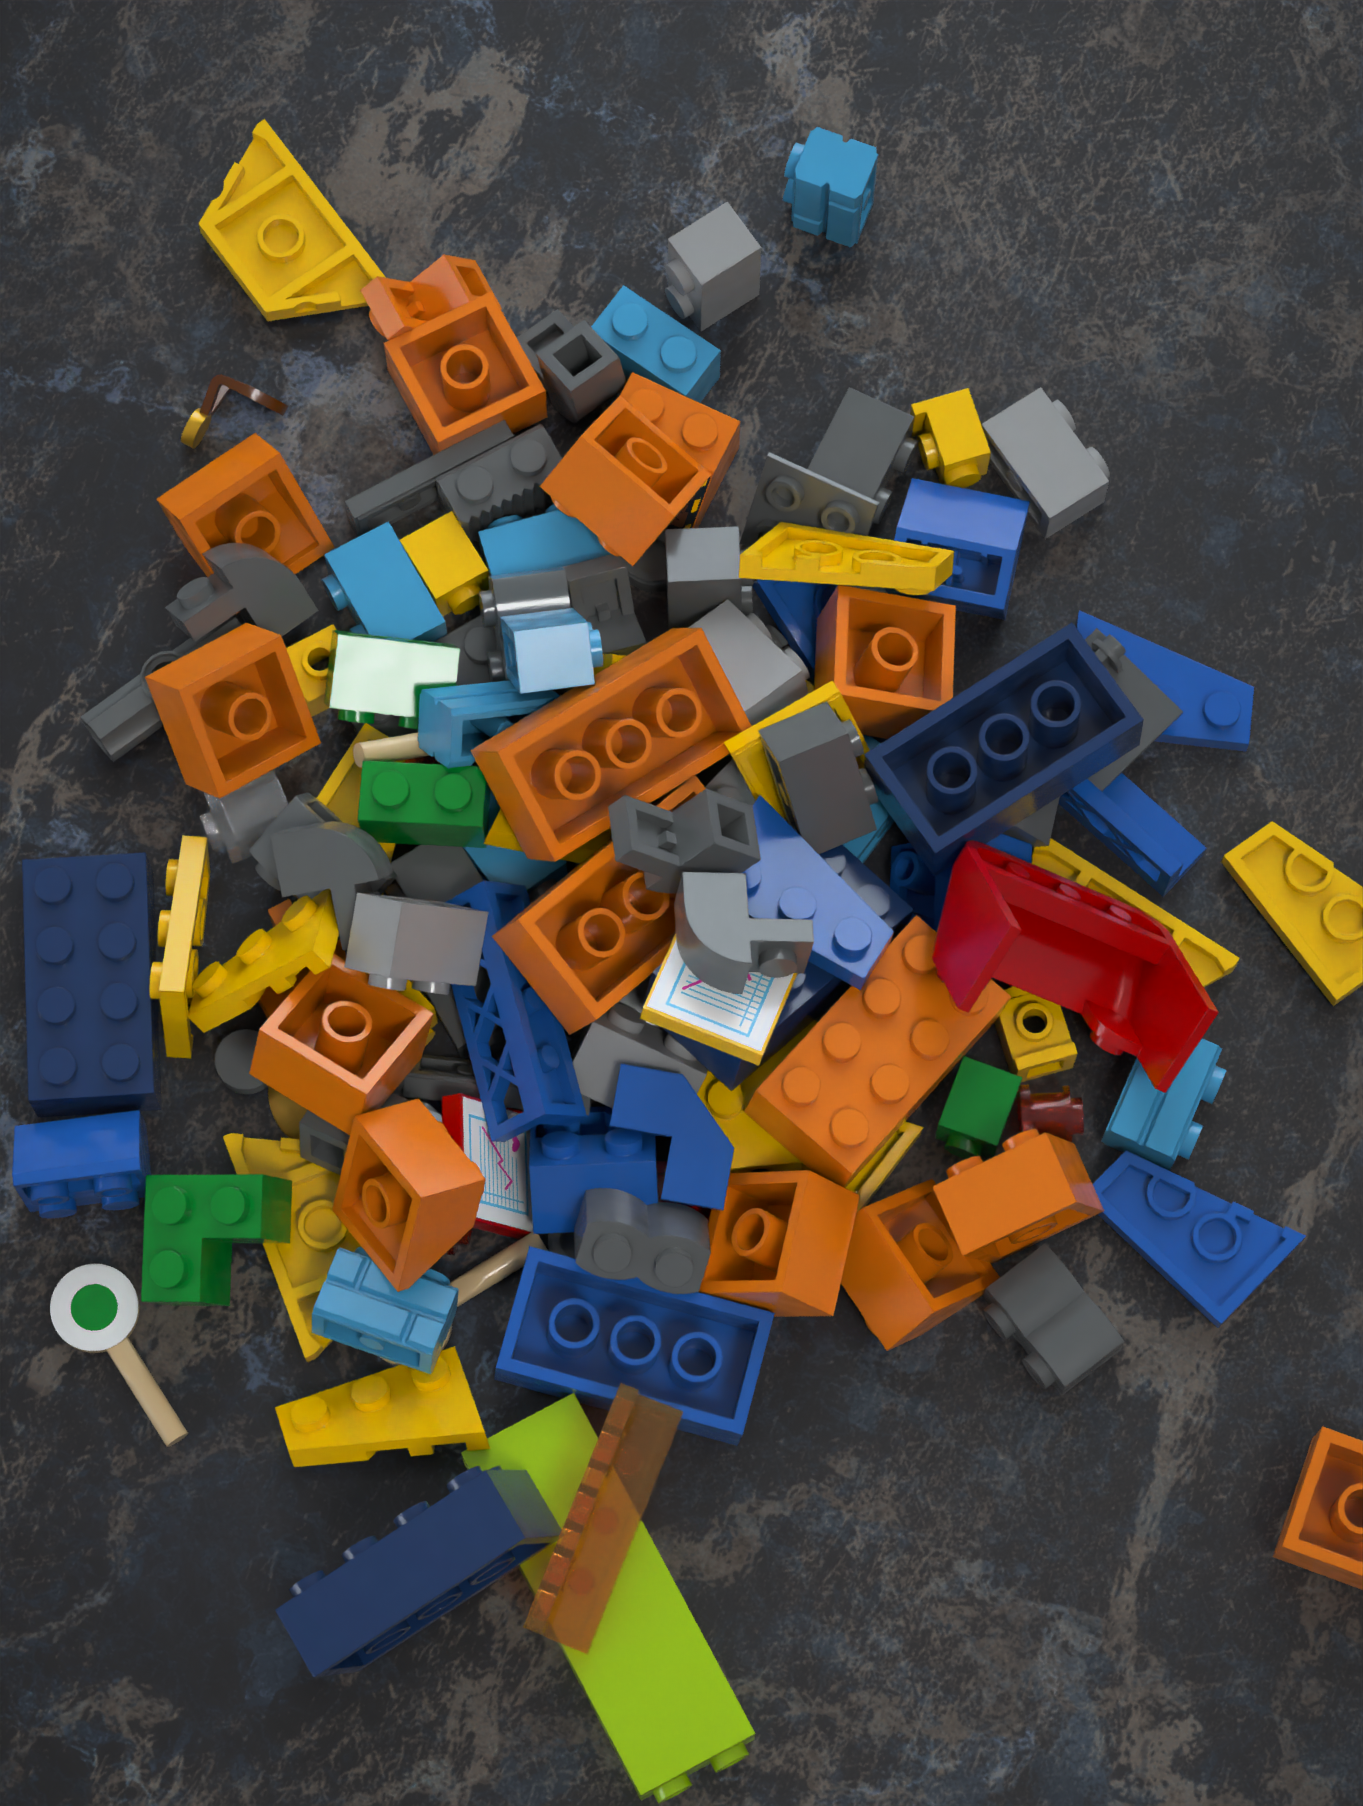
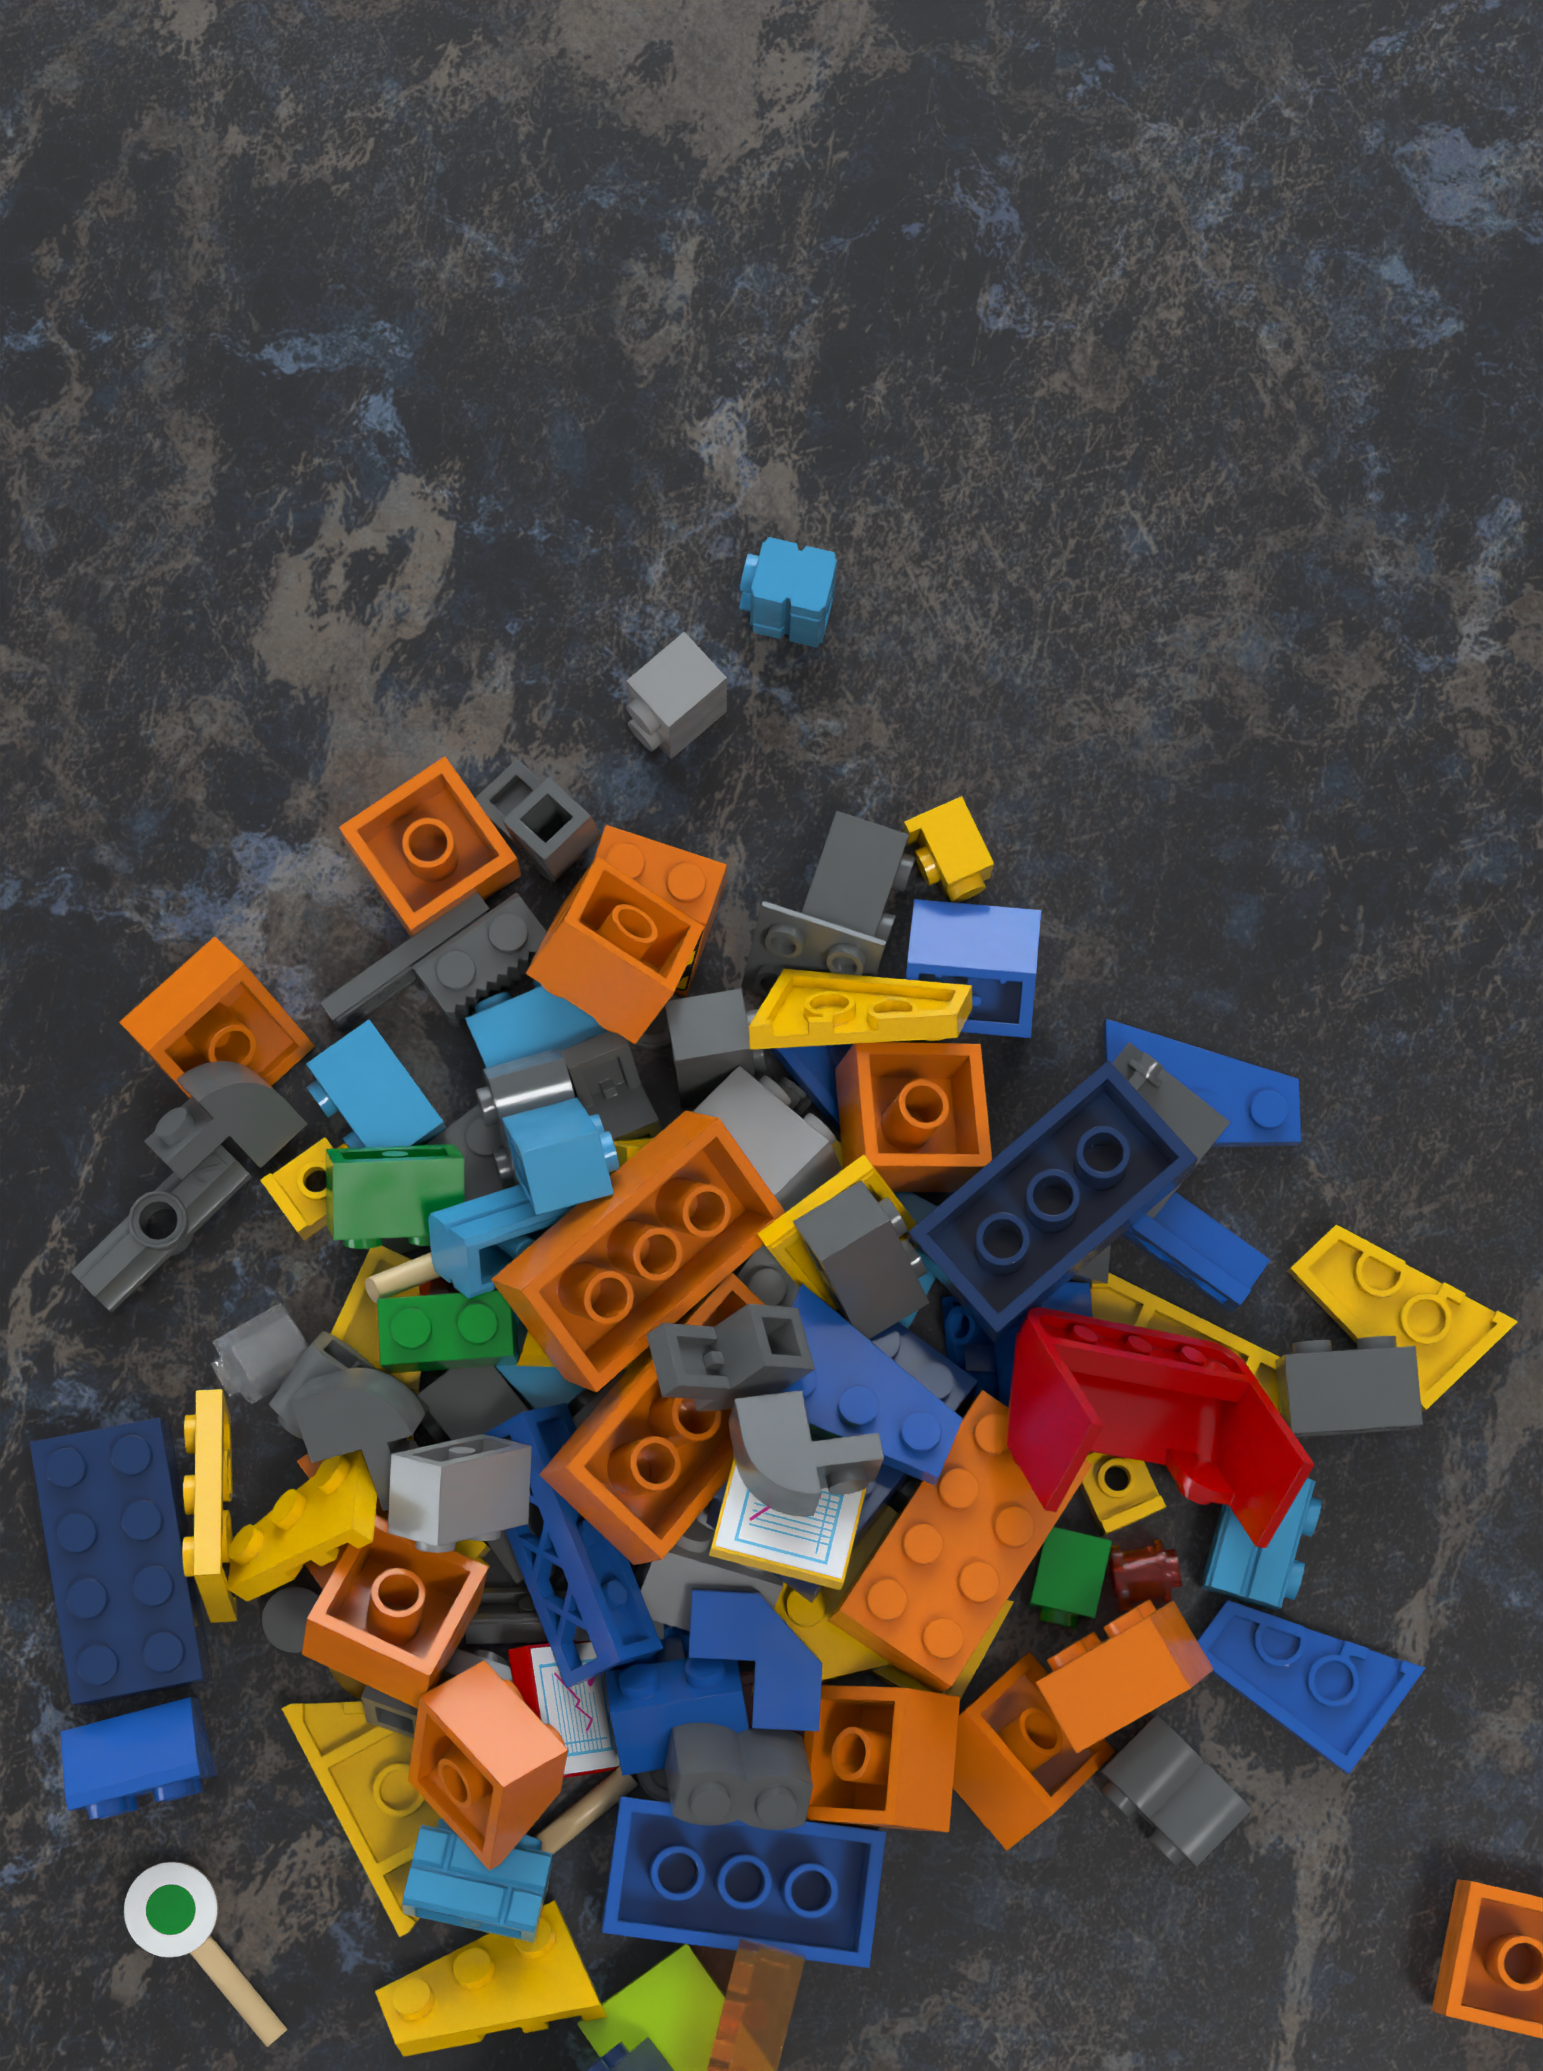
camera: 10 degrees left, 5 degrees up
(193, 1227) = (265, 1815): green brick -> none
(216, 393) = (194, 888): reddish brown piece -> none
(233, 710) = (231, 1250): orange brick -> none
(285, 236) = (219, 714): yellow wing -> none
(437, 290) = (386, 761): orange brick -> none
(447, 564) = (436, 1056): yellow brick -> none
(658, 346) = (627, 791): dark azure brick -> none
(1046, 461) = (1052, 861): light grey brick -> none
(1265, 966) = (1349, 1389): none -> dark grey brick

